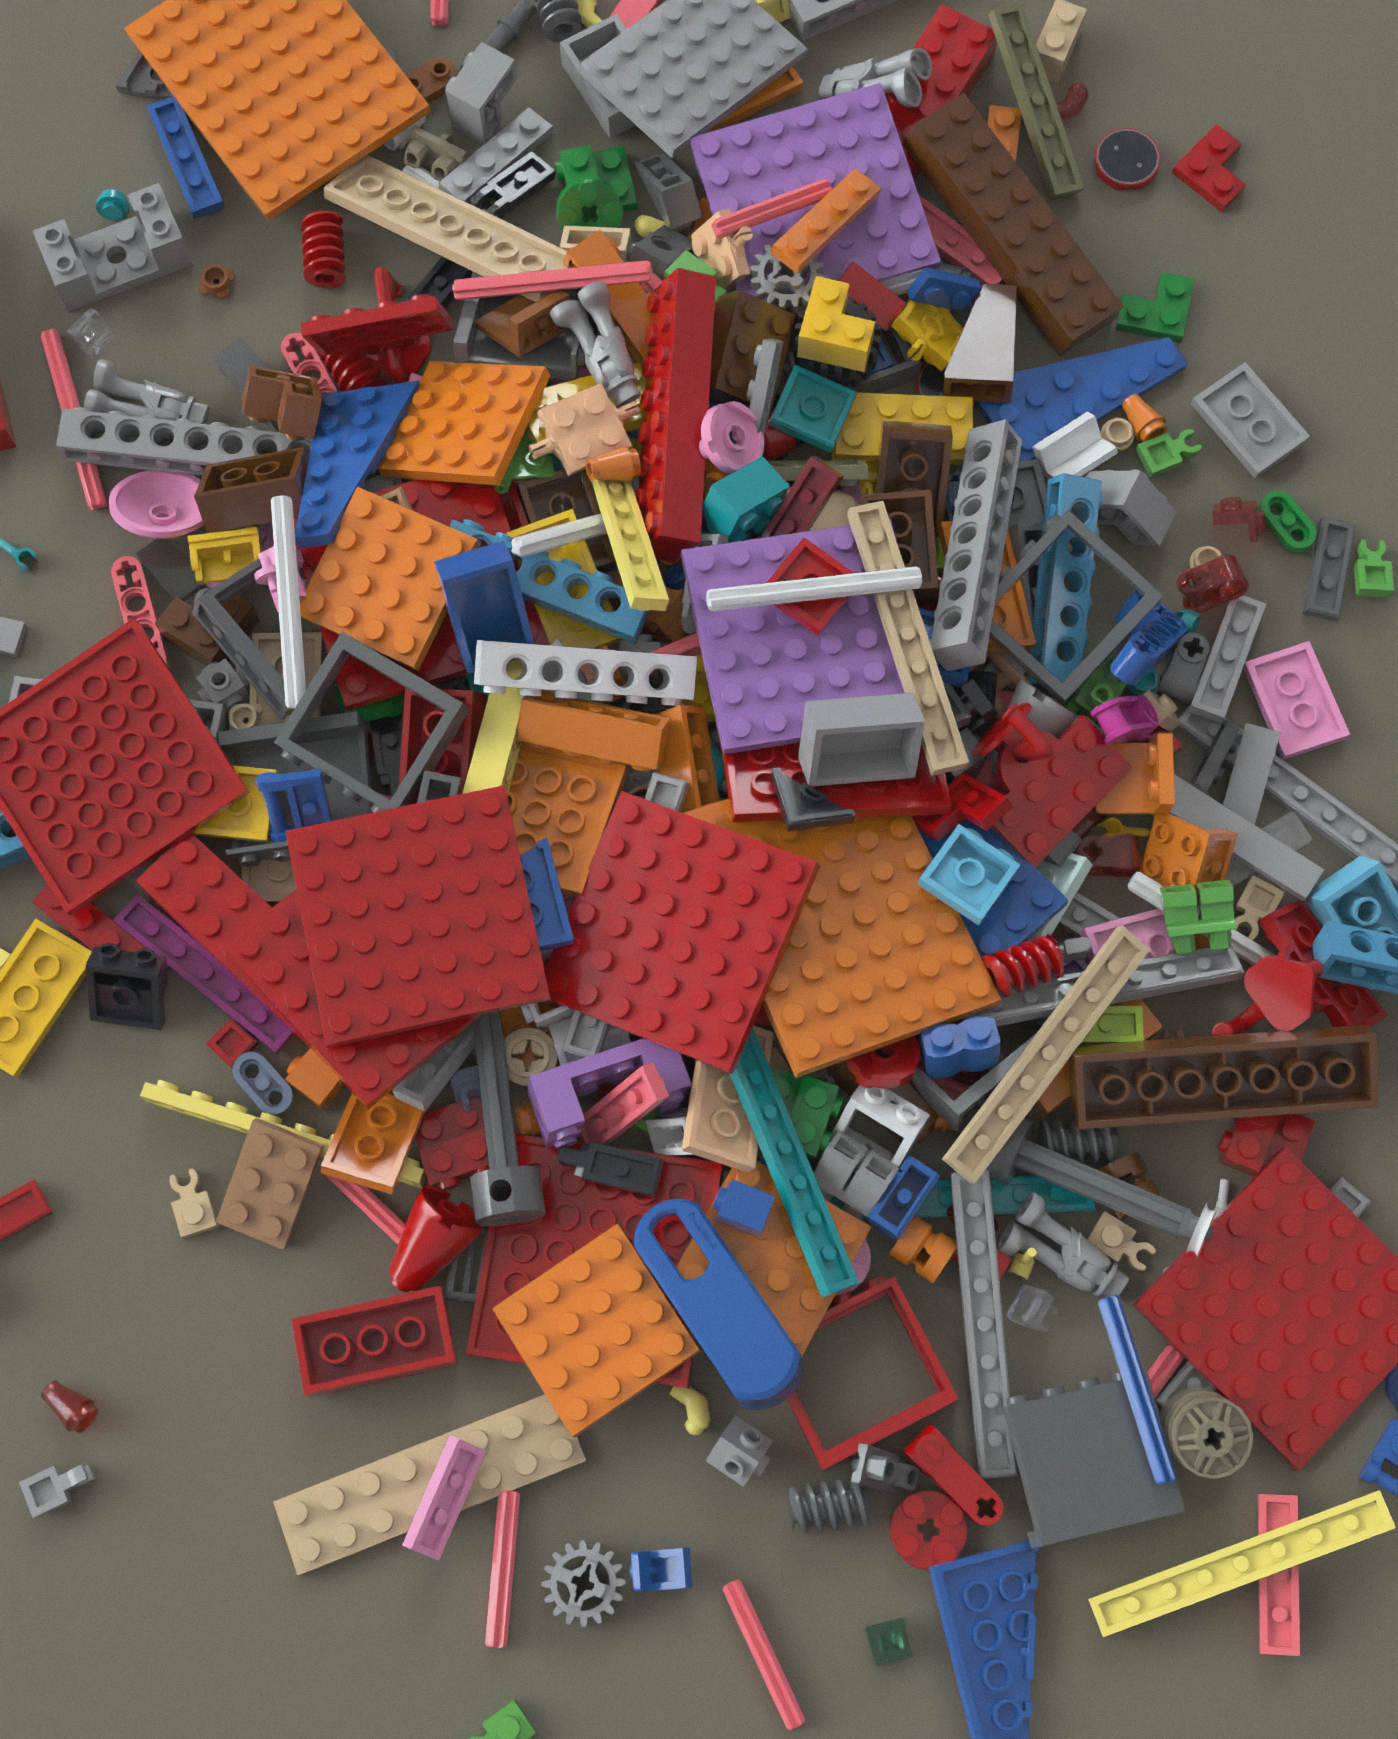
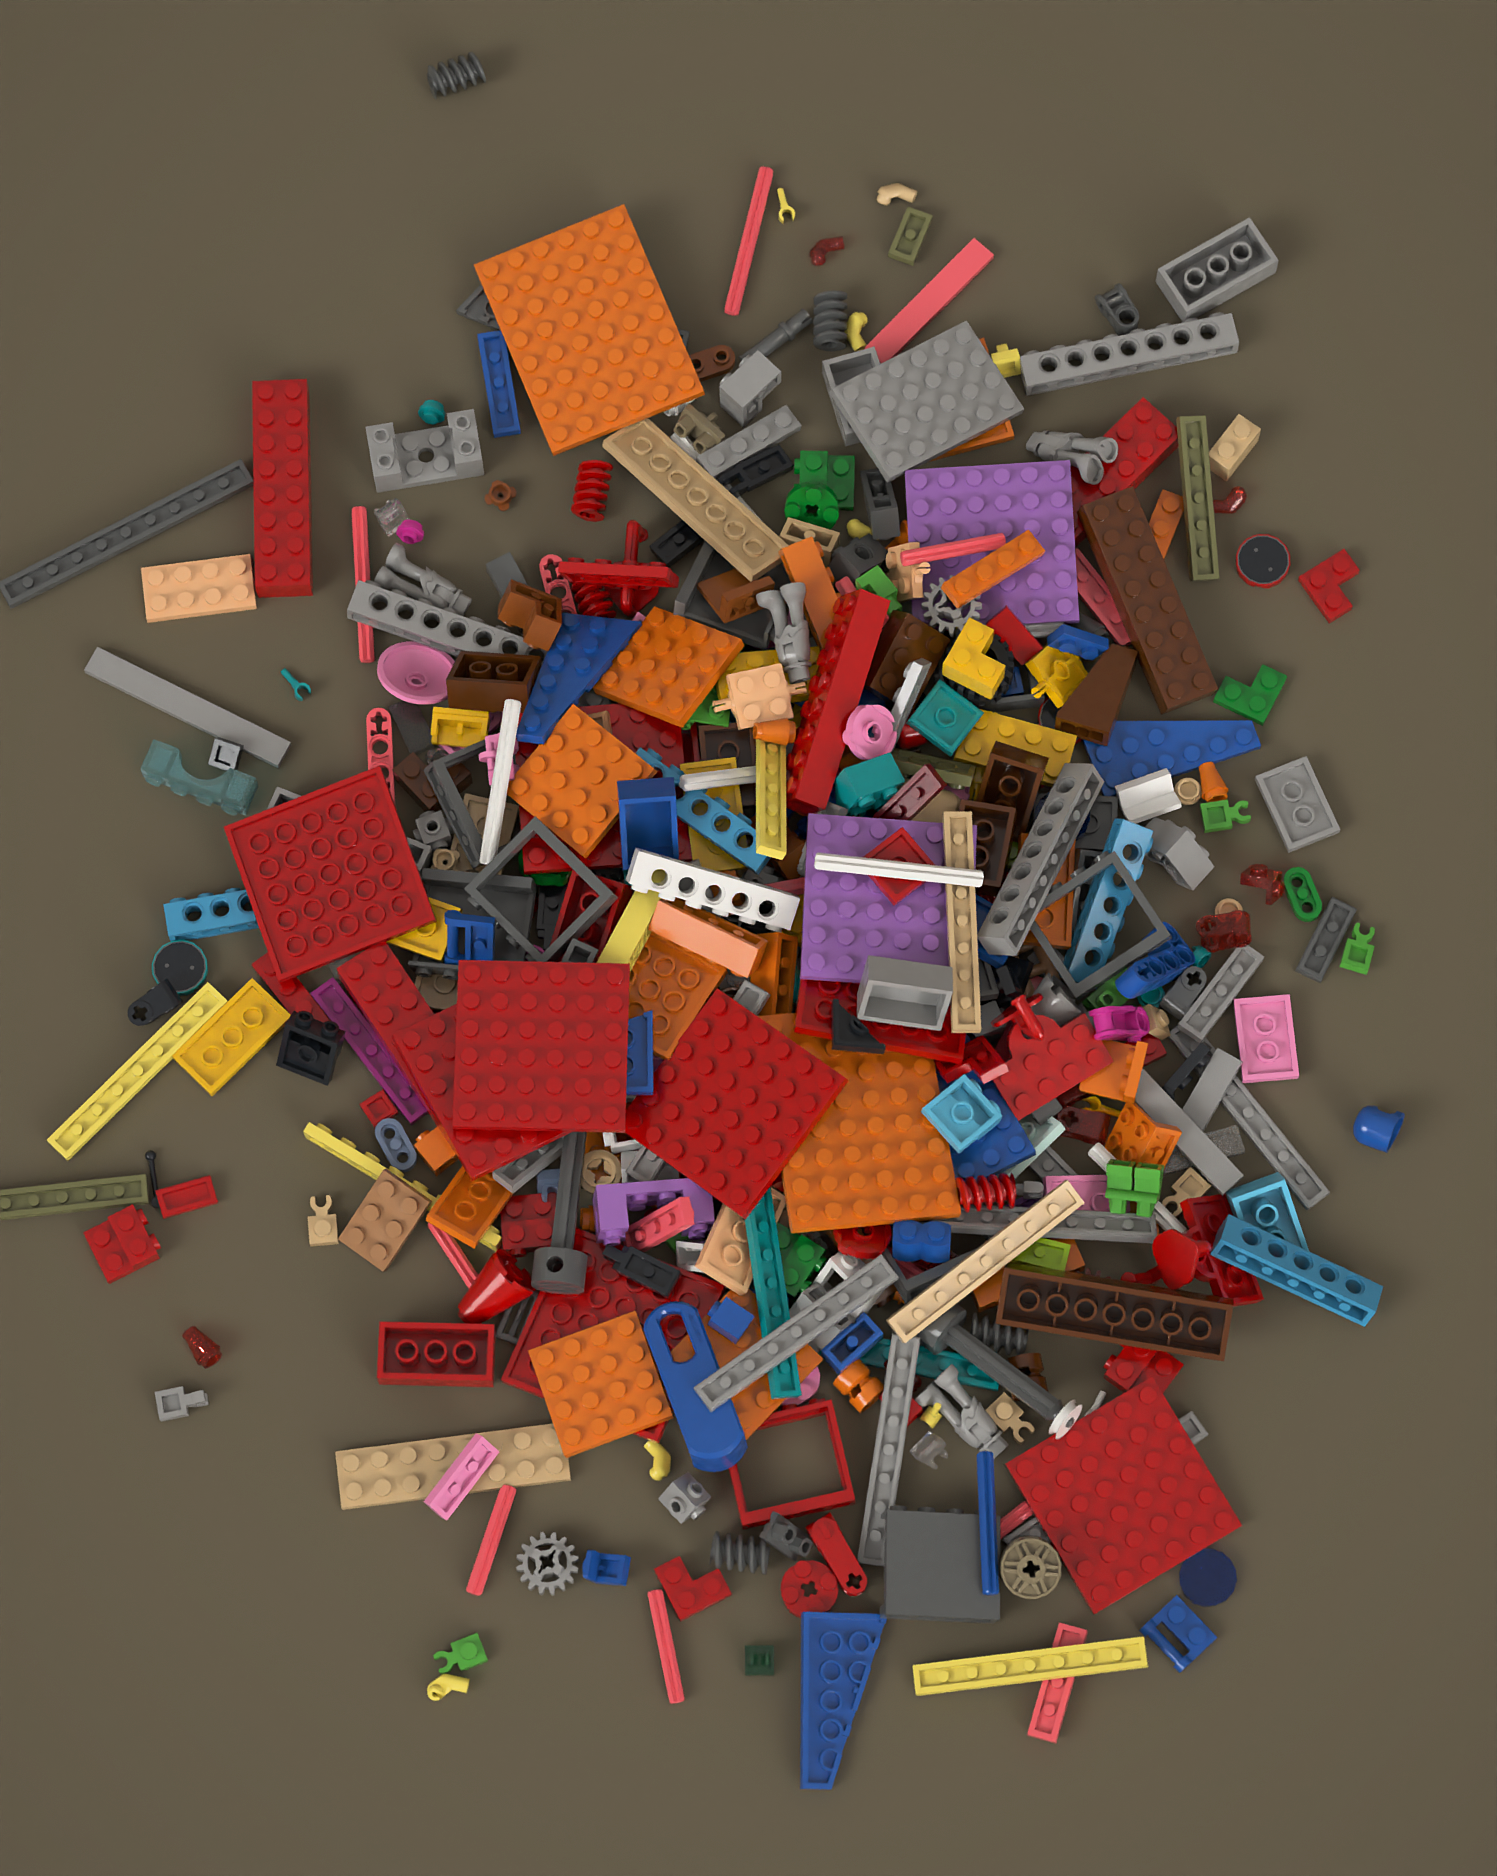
camera: 15 degrees right, 0 degrees up
(117, 345) = (410, 531): none -> dark pink plate
(552, 280) = (764, 569): coral axle -> none
(771, 1577) = (690, 1596): none -> red plate
(833, 1206) = (796, 1333): none -> light grey tile

